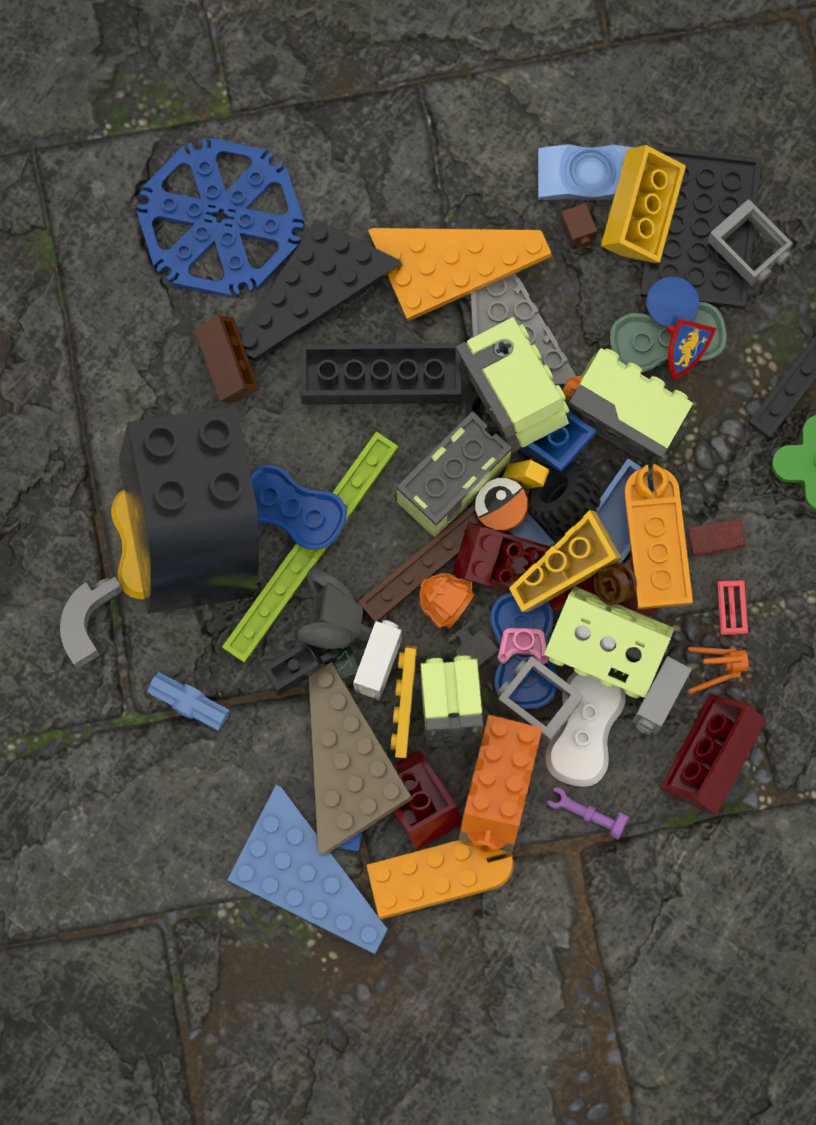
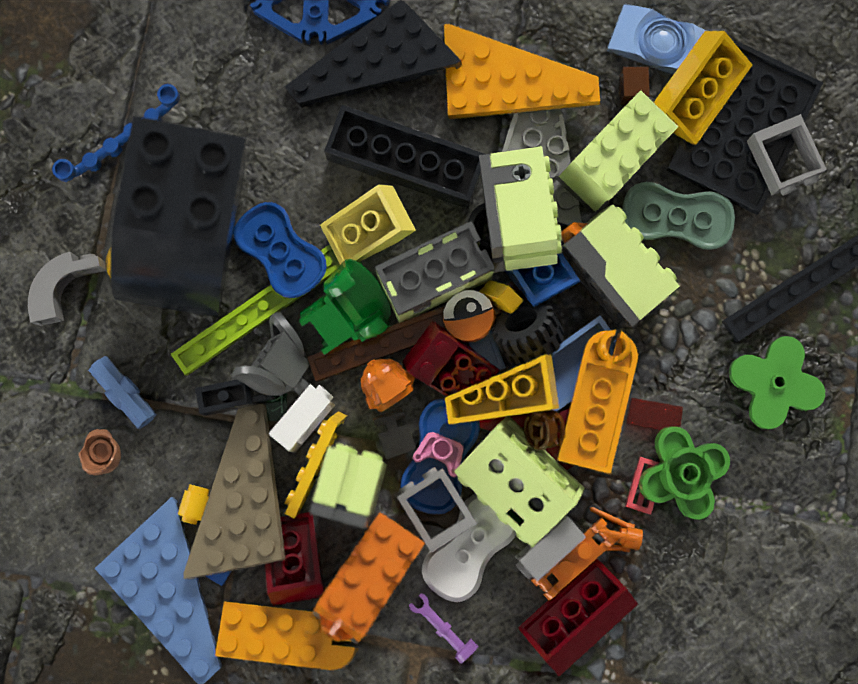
camera: 20 degrees right, 5 degrees up
(50, 503) = (66, 171): none -> blue bar
(190, 766) = (100, 453): none -> nougat hair
(226, 359) = (273, 95): reddish brown brick -> none
(301, 782) = (193, 504): none -> yellow brick
(370, 453) = (368, 225): none -> light yellow slope
(381, 538) = (350, 303): none -> green piece
(585, 297) = (617, 152): none -> yellowish green piece
(672, 299) = (694, 185): blue dish -> none
(687, 345) = (693, 229): shield -> none
(690, 701) = (576, 560): none -> orange plate
(778, 568) = (701, 468): none -> bright green plant

